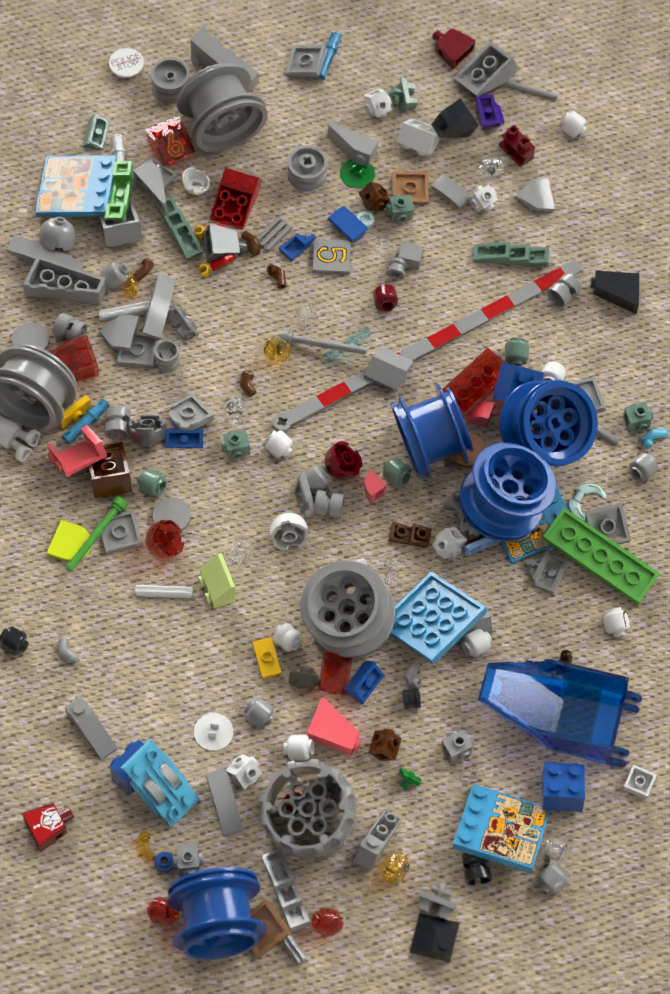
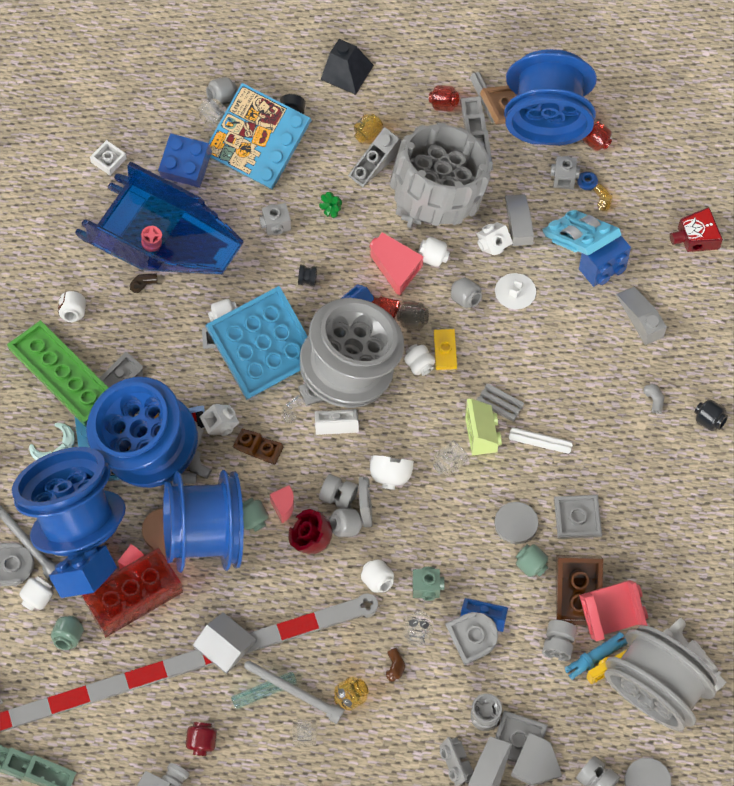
camera: 165 degrees left, 0 degrees up
(67, 541) = (634, 515): neon yellow tile -> none
(78, 357) = (607, 732): clear red slope -> none
(118, 505) = (575, 540): bright green piece -> none
(148, 430) = (526, 620): flat silver cylinder -> none
(164, 539) = (531, 485): clear red cylinder -> none
(188, 620) = (501, 394): none -> light grey tile
(385, 745) = (347, 234): reddish brown brick -> none
(411, 676) = (300, 298): light grey arm -> none
(445, 905) = (335, 95): light grey hips -> none
(567, 694) = (151, 233): none -> coral wheel
(609, 521) = (40, 410): light grey slope -> none

